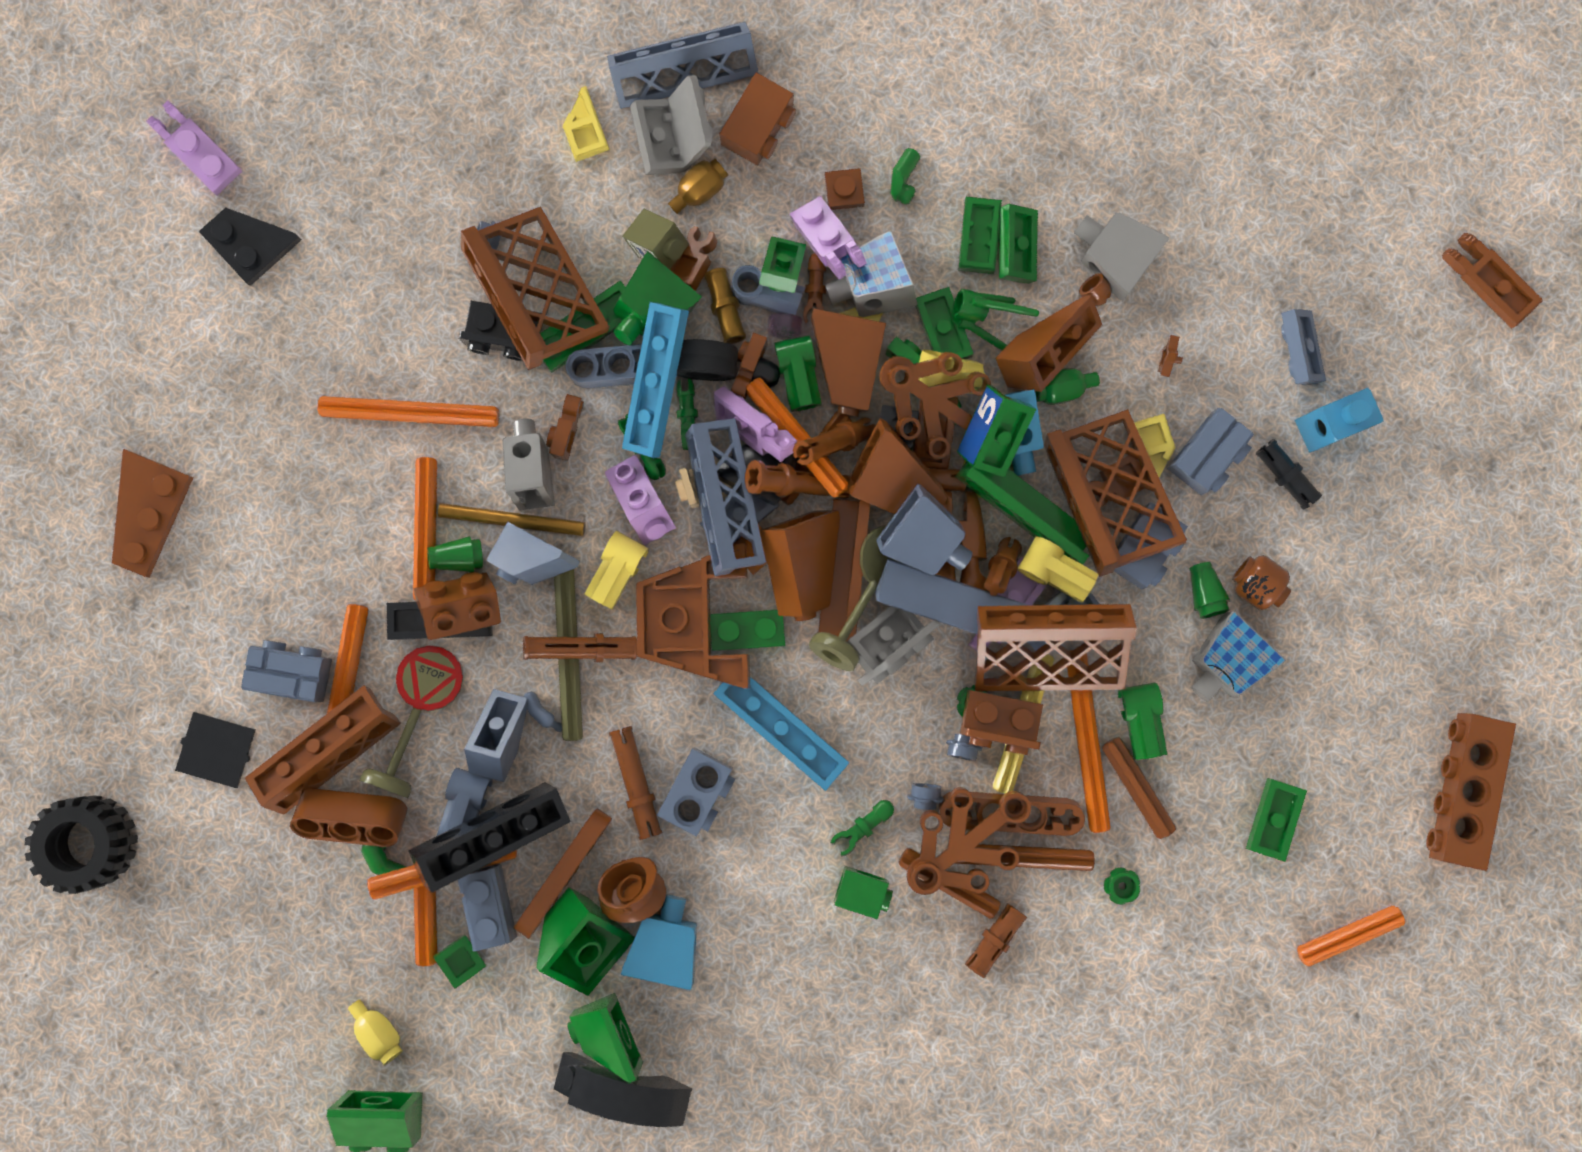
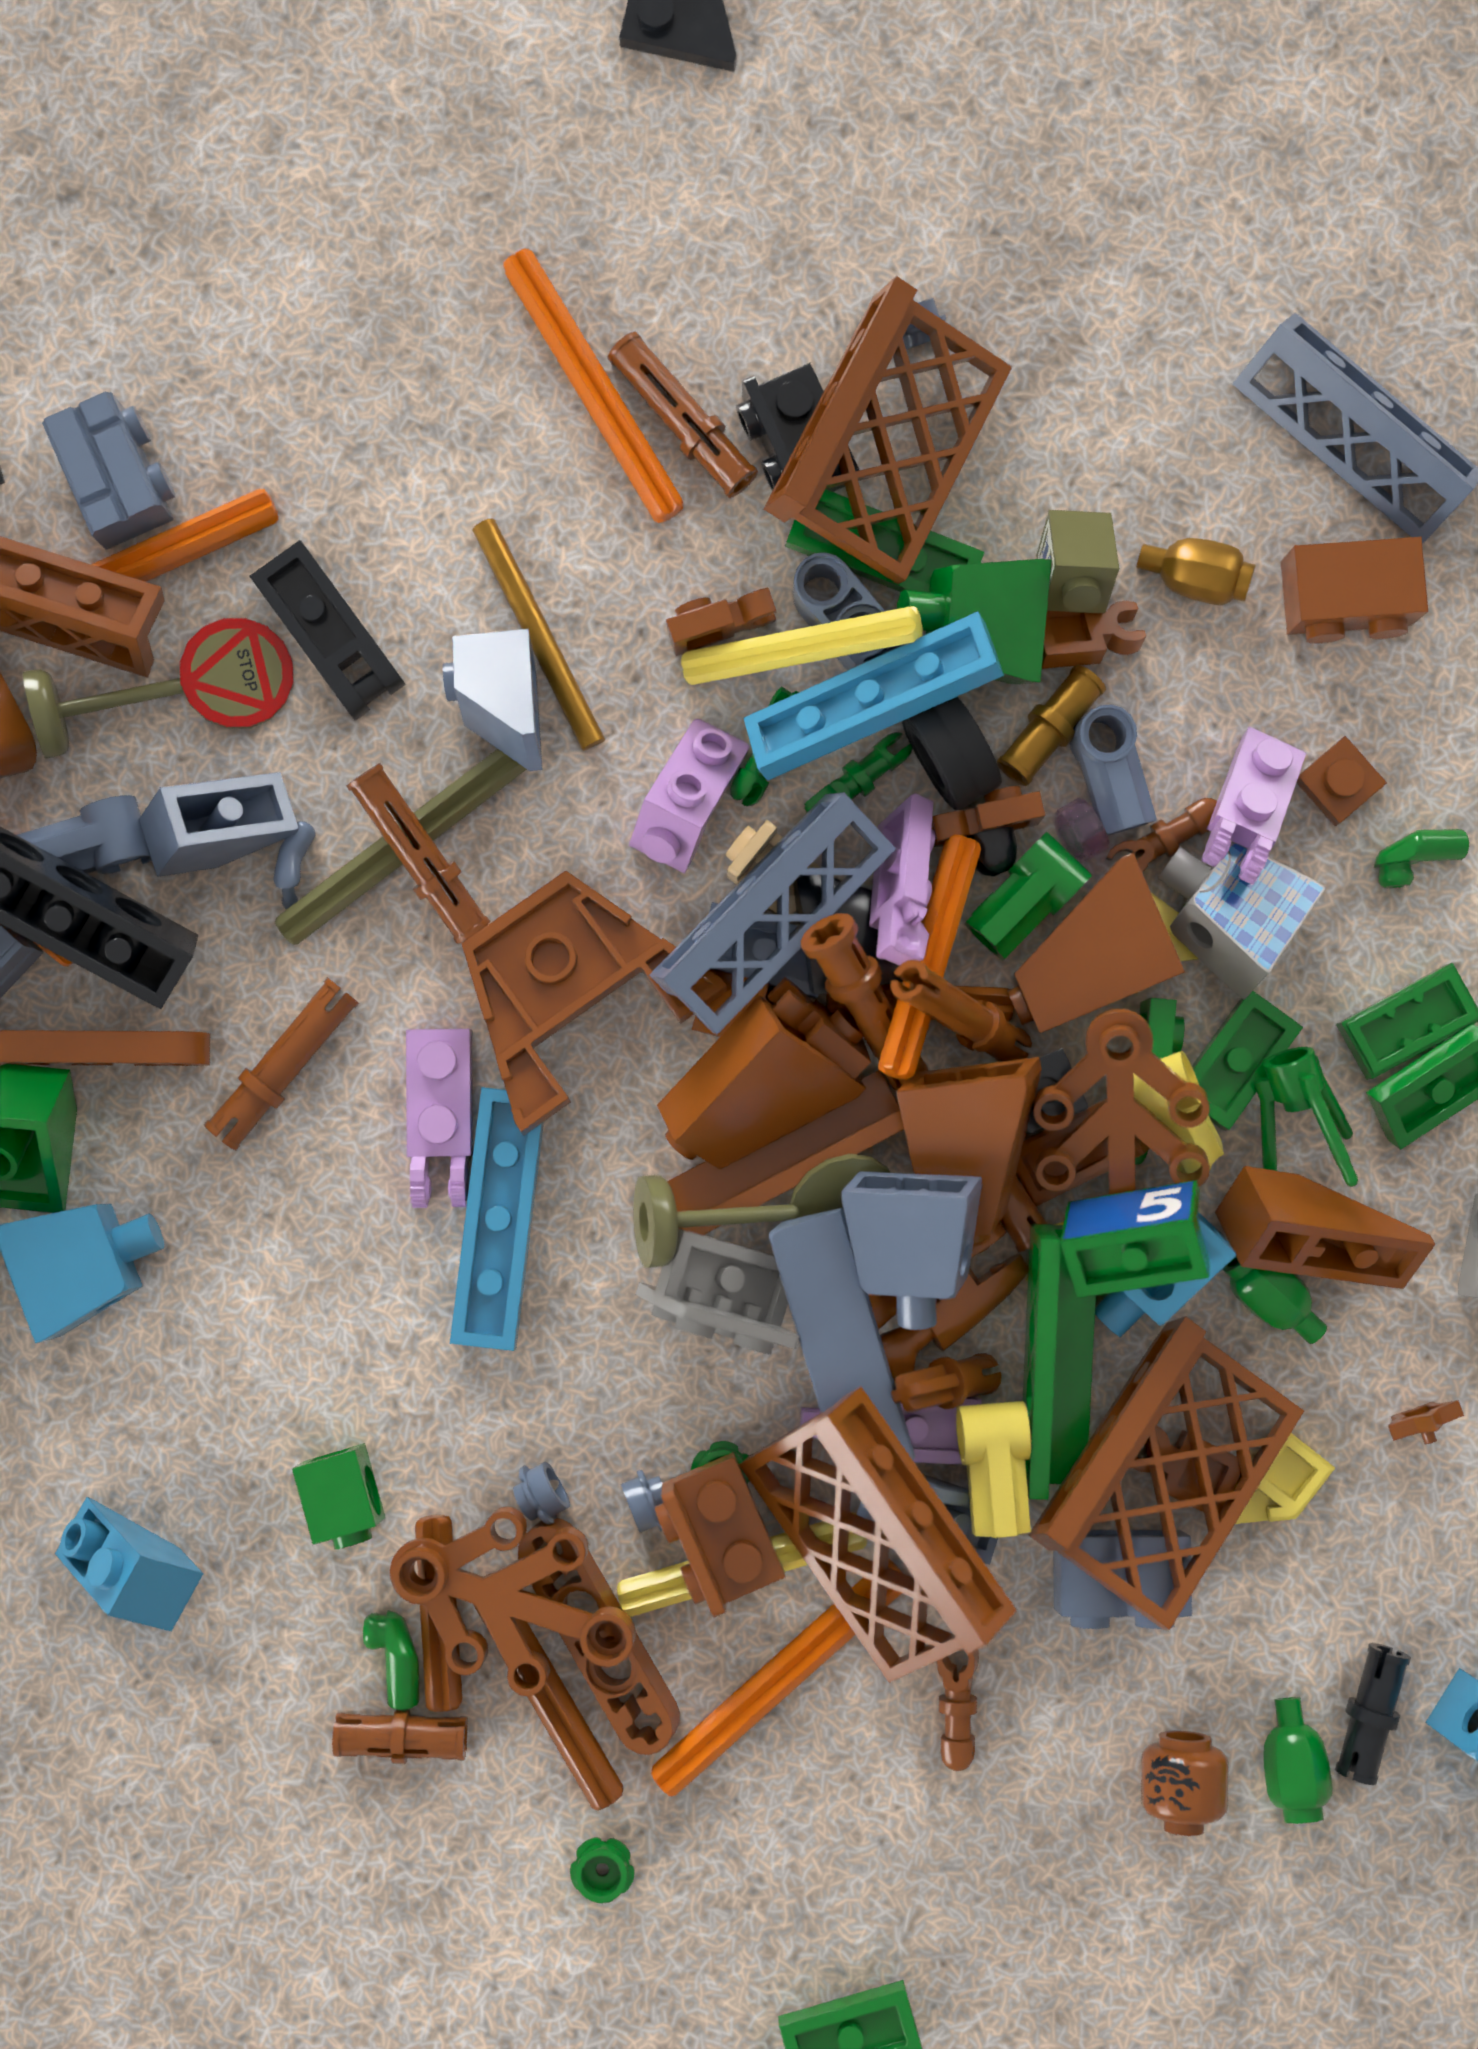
camera: 55 degrees right, 0 degrees up
(145, 511) = (206, 123): dark orange wing -> none
(424, 519) = (442, 522): orange axle -> none
(456, 555) = (432, 591): green cone -> none
(458, 605) = (362, 640): dark orange bracket -> none
(495, 374) = (730, 467): none -> dark orange pin
(527, 467) = (624, 603): light grey torso -> none
(584, 128) = (1167, 353): light yellow tile -> none
(606, 397) = (802, 645): none -> light yellow axle
(618, 565) = (573, 828): light yellow piece -> none
(631, 890) = (122, 1162): dark orange piece -> none
(672, 130) = (1253, 477): light grey bracket -> none
(688, 787) = (324, 1144): sand blue brick -> none
(708, 721) = (439, 1109): none -> lavender hinge
(747, 630) = (606, 1074): green plate -> none
(782, 265) = (1166, 766): green plate -> none
(801, 509) = (829, 1033): none -> dark orange plate
(827, 1018) = (127, 1567): none -> dark azure slope
(881, 813) = (436, 1433): green piece -> none
(959, 915) = (401, 1658): none -> green arm
(1101, 289) = (1451, 1253): dark orange hinge -> none
(1139, 788) = (760, 1799): dark orange axle -> none
(1142, 712) = (873, 1731): green piece -> none
(1157, 666) = (958, 1706): none -> dark orange piece
(1208, 592) = (1117, 1709): green cone -> none
(1211, 452) = (1326, 1577): sand blue brick -> none
(1233, 658) = (1044, 1814): torso -> none
(1289, 526) = (1296, 1765): none -> green plant

